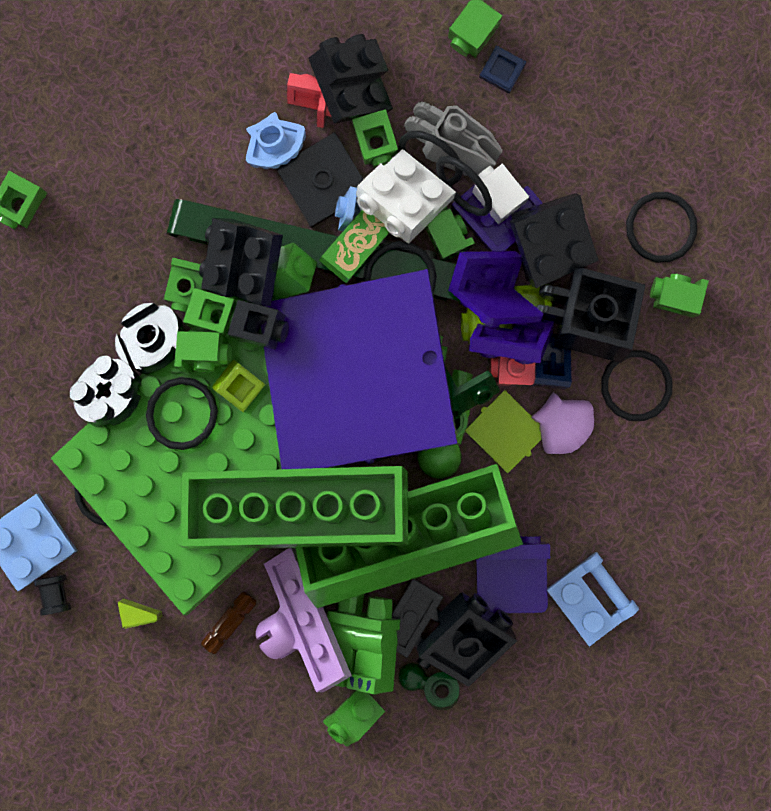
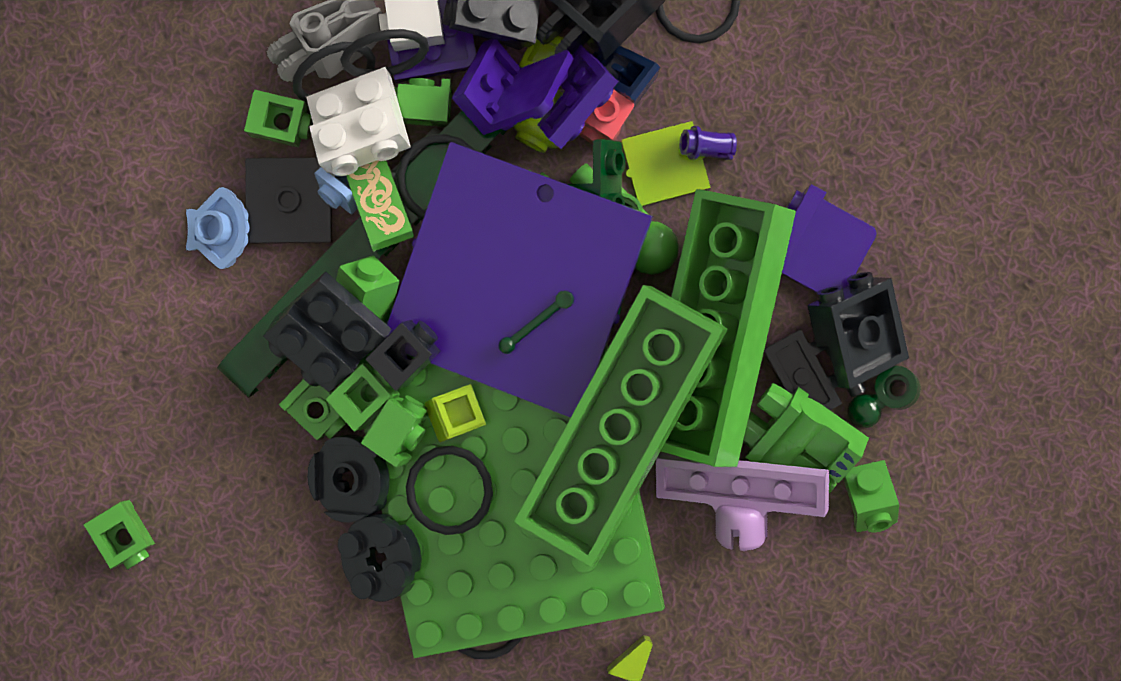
camera: 65 degrees left, 0 degrees up
(228, 622) = (697, 570): reddish brown axle -> none
(305, 92) = (190, 157): coral bracket -> none
(351, 77) = (198, 106): black plate -> none
(361, 415) = (563, 300): none -> dark green hinge
(533, 445) = (707, 144): none -> dark purple pin
(564, 424) = (693, 97): lavender animal -> none
(583, 607) = (892, 190): light blue plate -> none

